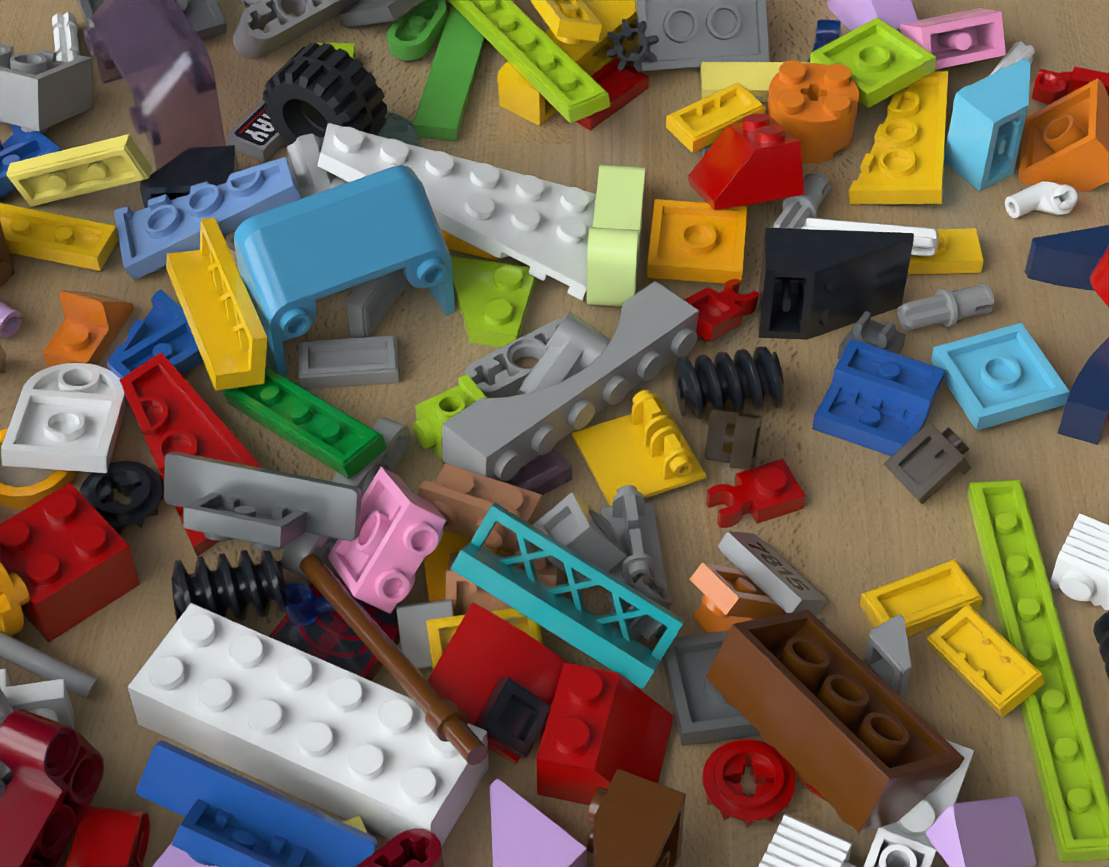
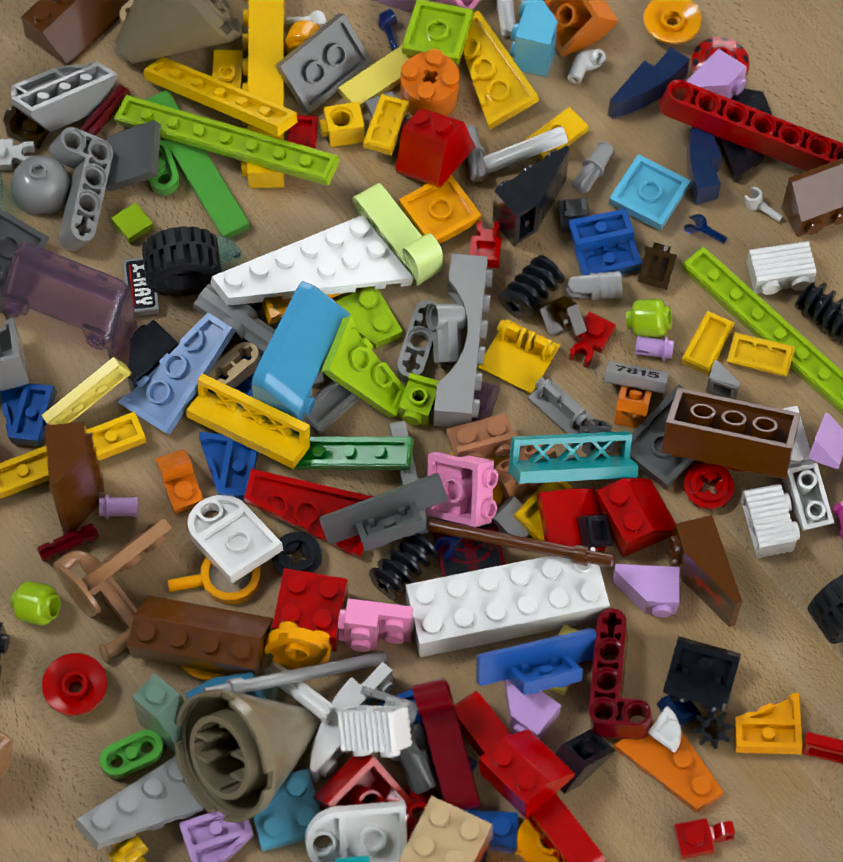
camera: 40 degrees left, 15 degrees up
(98, 621) = (368, 621): none -> bright pink plate
(404, 328) = (361, 372): none -> lime wing
(584, 532) = (543, 420): light grey brick -> none
(629, 34) = (298, 100): black gear -> none
(664, 91) = (346, 114): none -> yellow brick
(819, 435) = (595, 286): none -> light grey hinge
(845, 565) = (654, 347): none -> lavender pin
(858, 515) = (649, 318): none -> lime head
(1041, 461) = (701, 226): none -> clear blue hand

